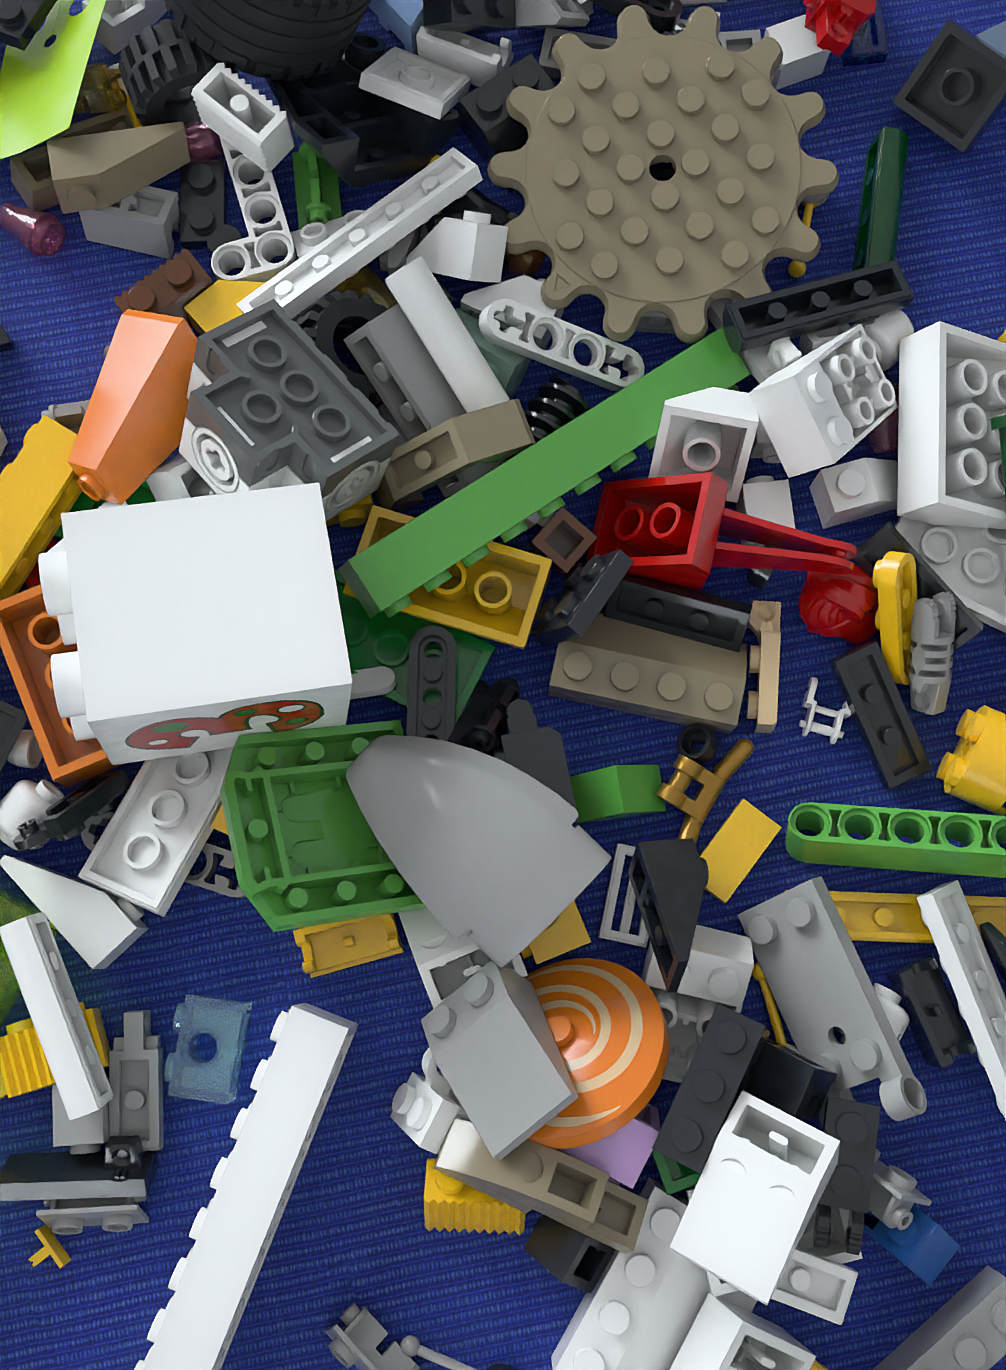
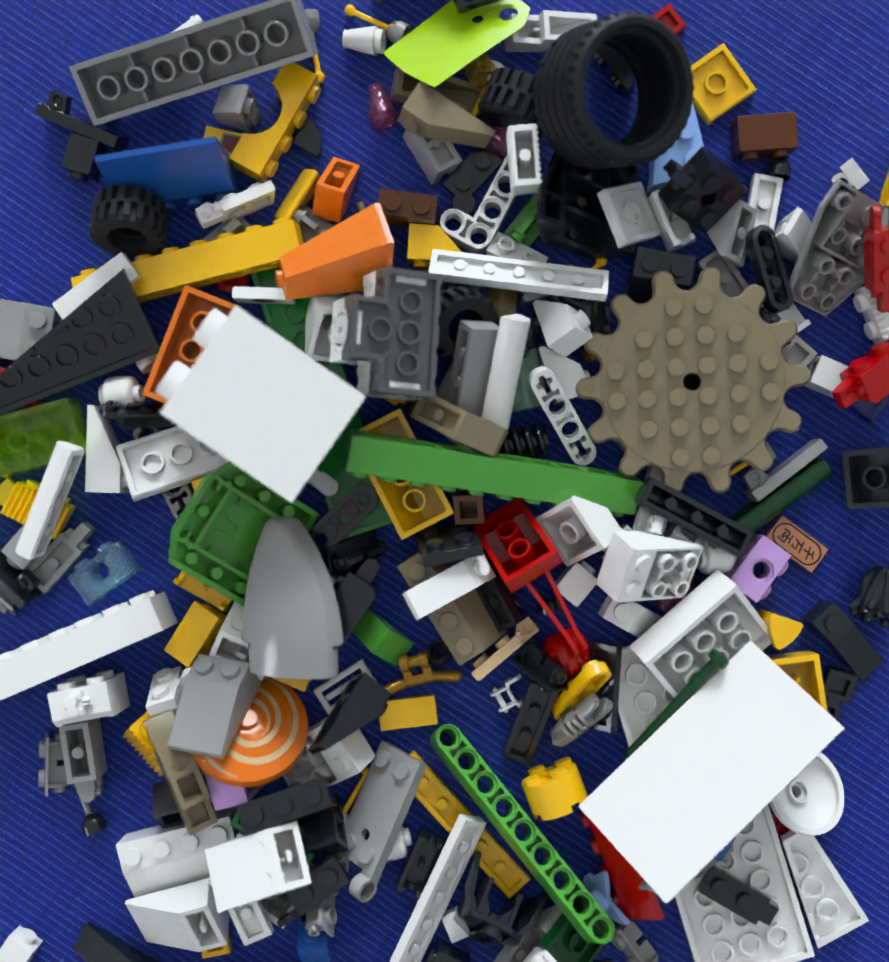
camera: 45 degrees right, 10 degrees up
(26, 393) = (299, 194): none -> yellow slope
(64, 358) = (335, 189): none -> orange slope
(335, 1229) = (88, 698): none -> white hinge
(392, 1009) = (195, 633): none -> yellow hinge
(403, 1302) = (84, 757): none -> light grey hinge
(630, 638) = (448, 585): none -> white slope
(846, 633) = (547, 675): none -> black hinge
(847, 218) = (761, 484): none -> light grey hinge
(942, 282) = (774, 563): none -> lavender brick
(948, 248) = (802, 547): none -> nougat tile

